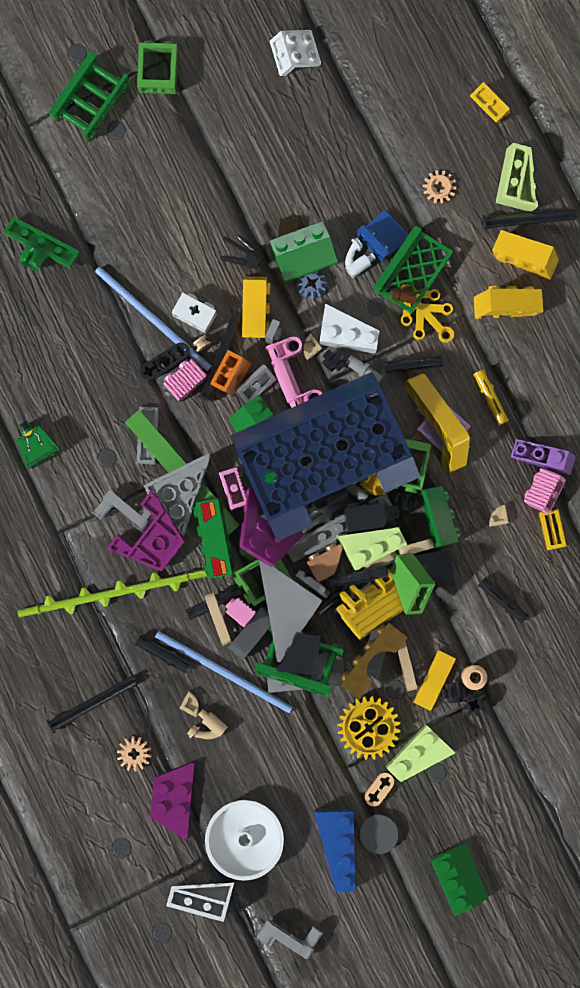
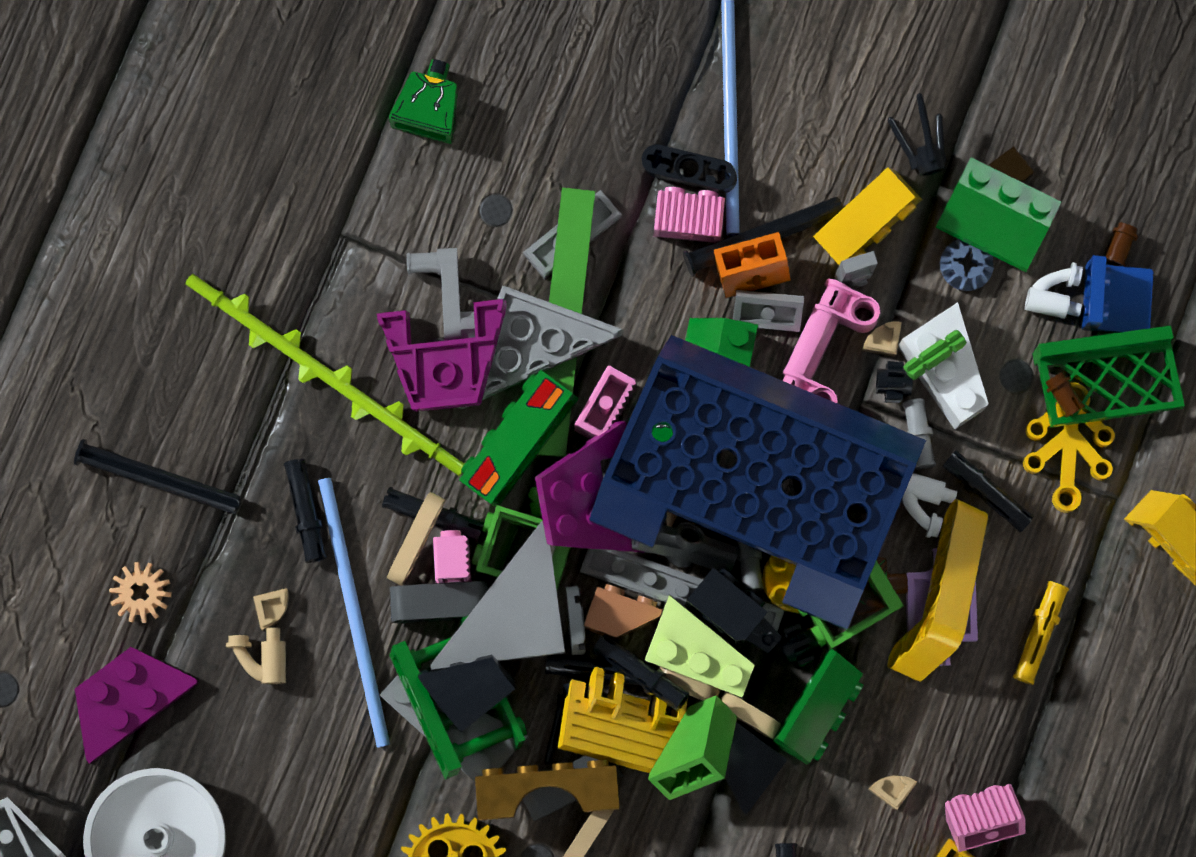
camera: 40 degrees right, 5 degrees down
(199, 321) = (784, 167): white brick -> none
(201, 343) = (755, 194): tan bush -> none
(339, 334) = (935, 354): none -> bright green axle
(362, 213) = (1121, 243): none -> reddish brown pin
(391, 388) = (930, 491): none -> white plant
(543, 456) = (1029, 776): medium lavender slope -> none

